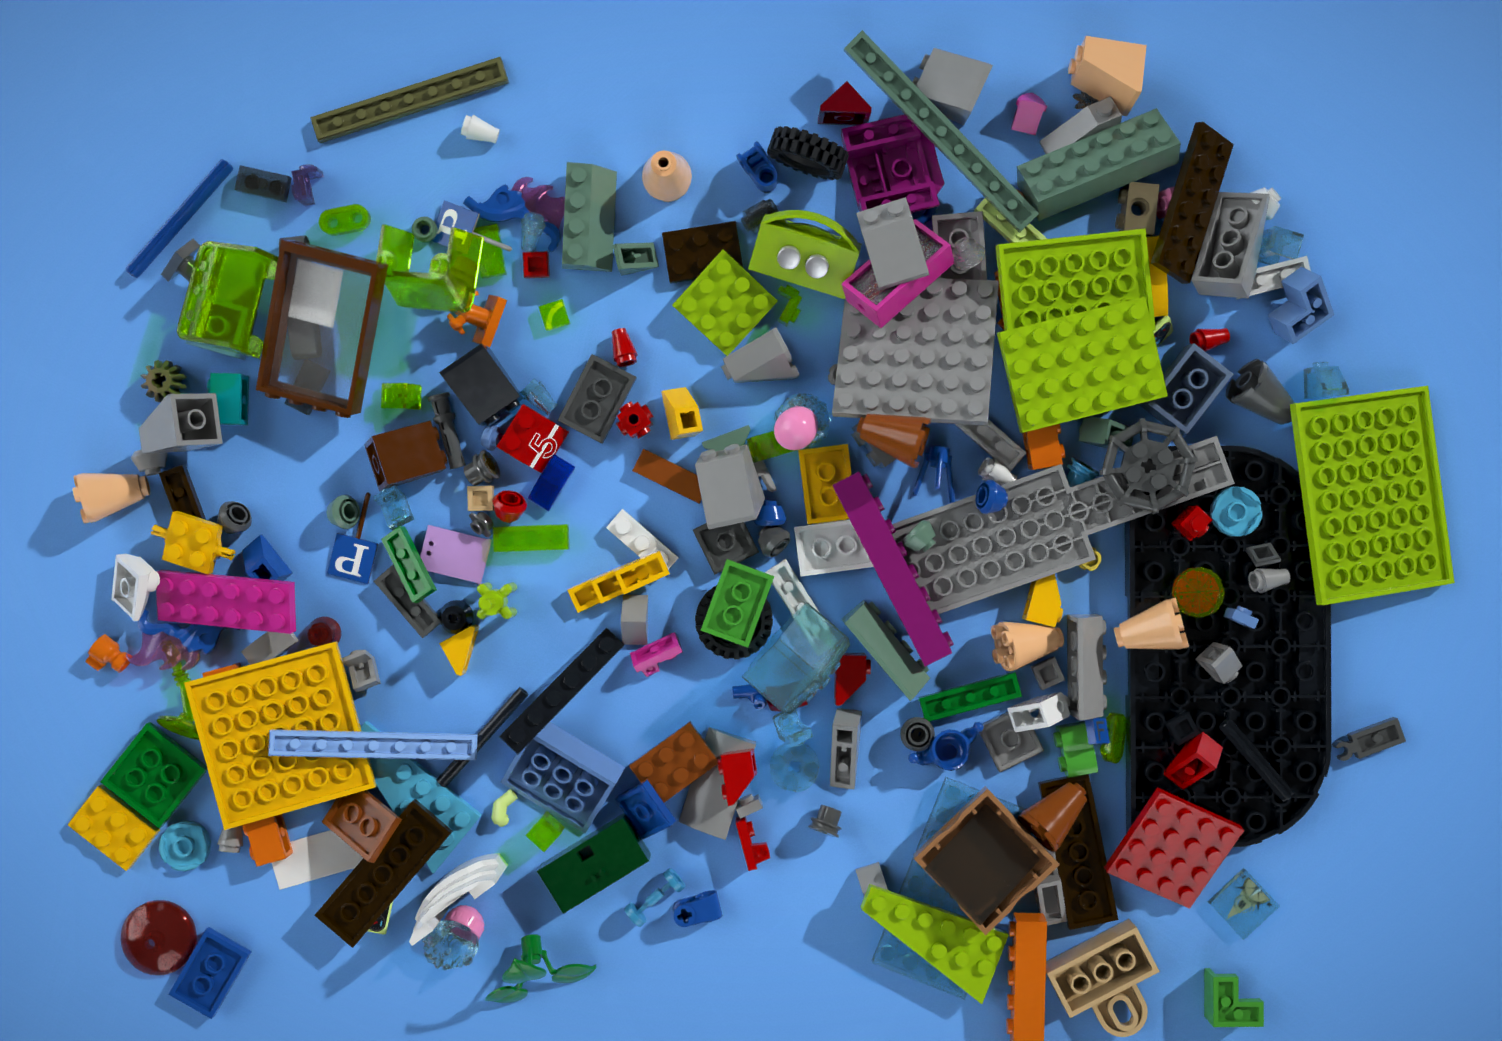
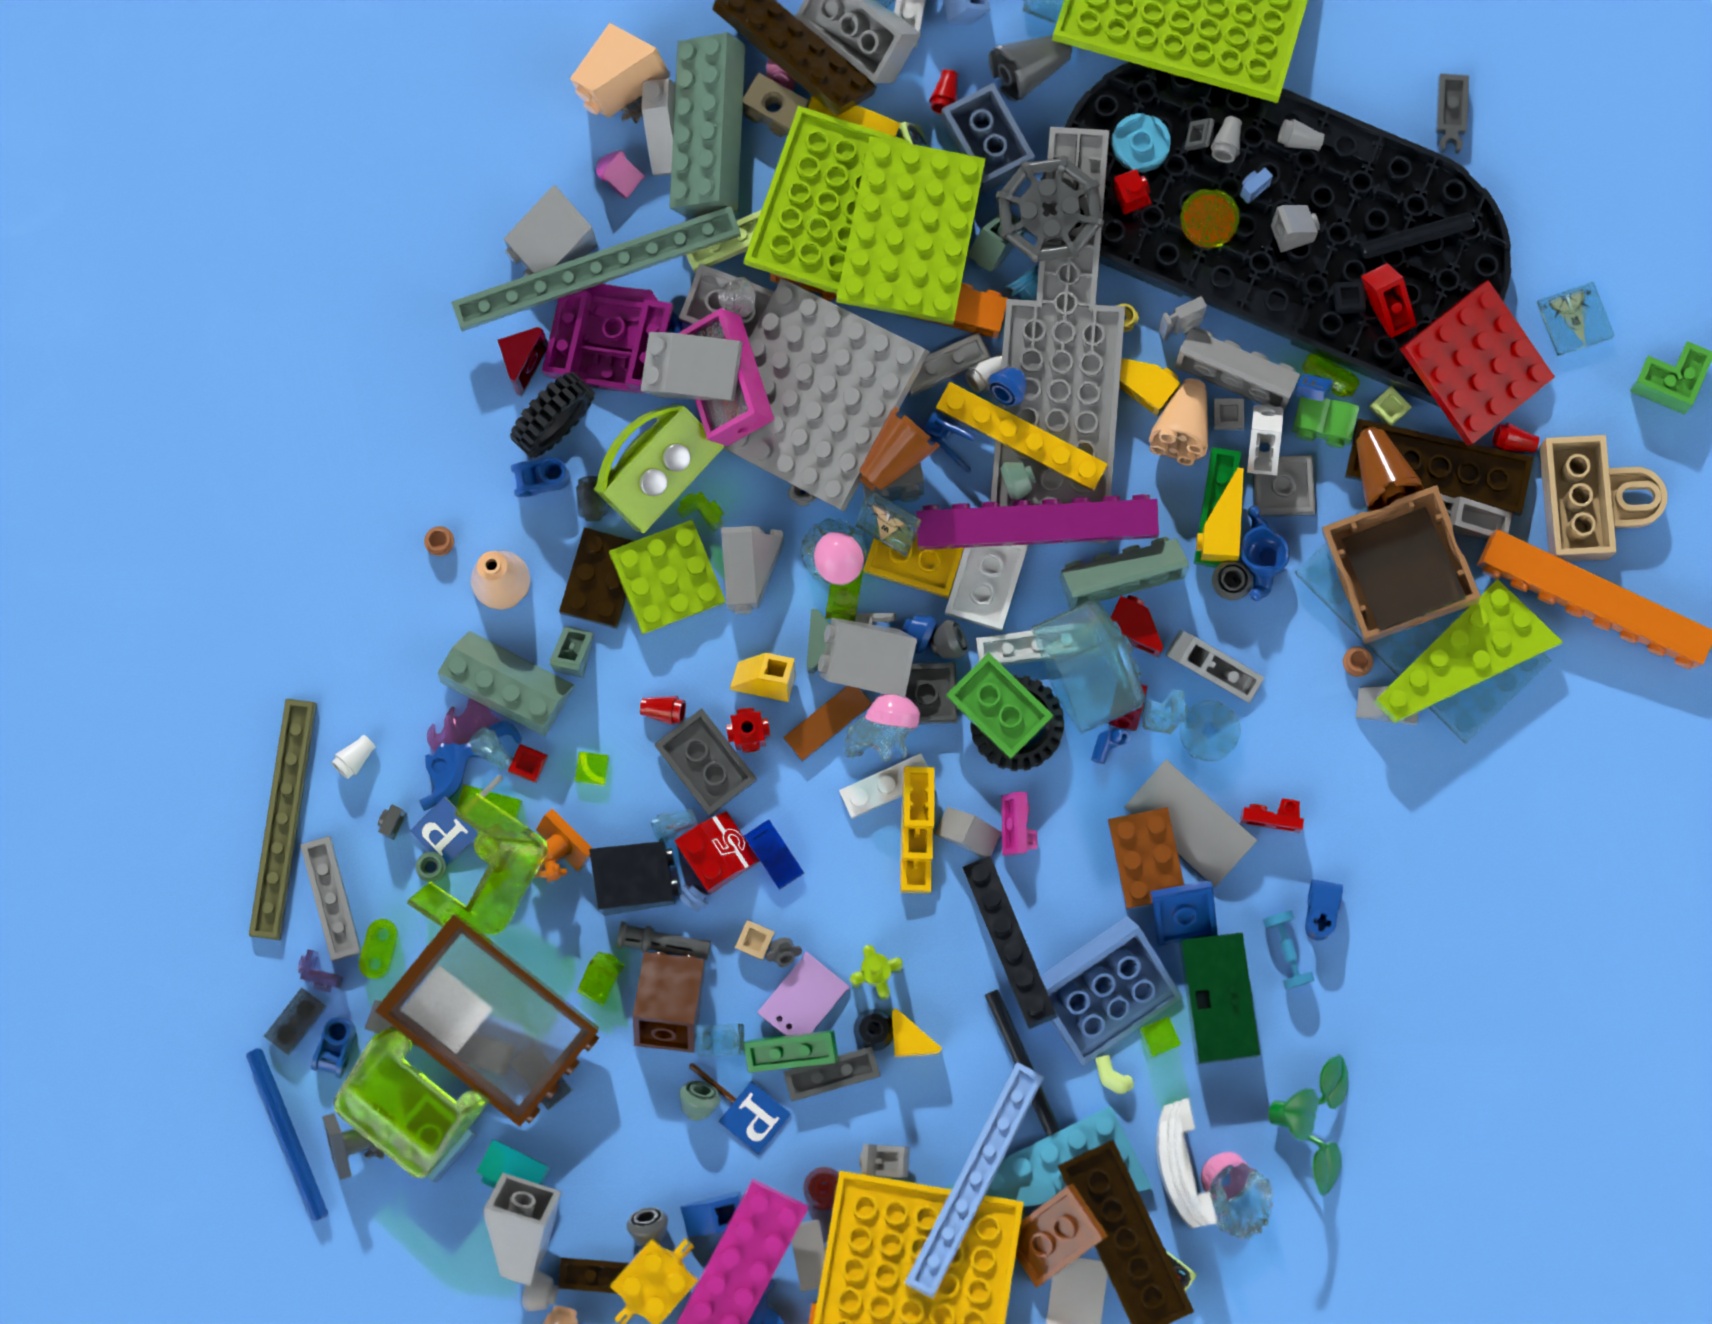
camera: 60 degrees left, 10 degrees down
(157, 375) = (450, 1242): dark tan gear -> none
(253, 222) = (334, 1049): none -> blue piece
(365, 165) = (331, 898): none -> light grey plate
(443, 183) = (391, 821): none -> dark grey plate
(482, 468) = (723, 923): dark grey piece -> none
(509, 506) = (778, 911): red cone -> none
(531, 538) = (824, 904): clear neon green plate -> none
(674, 114) = (439, 541): none -> nougat plate
(680, 522) = (884, 726): none -> hair
(738, 772) = (1186, 787): red slope -> none
(748, 805) = (1230, 798): light grey plate -> none
(827, 821) = (1287, 722): dark grey piece -> none
(840, 454) = (888, 523): none -> clear light blue tile
(898, 853) = (1357, 661): none -> nougat plate
(955, 710) = (1223, 528): none -> yellow slope
(956, 524) = (1021, 436): none -> yellow plate
(1107, 608) = (1184, 317): none -> light grey plate
(1109, 792) = (1390, 406): none -> yellowish green tile
(1126, 897) = (1514, 439): none -> red cone
(1153, 628) = (1226, 278): light nougat cone -> none
(1297, 633) = (1297, 135): none -> light grey cone

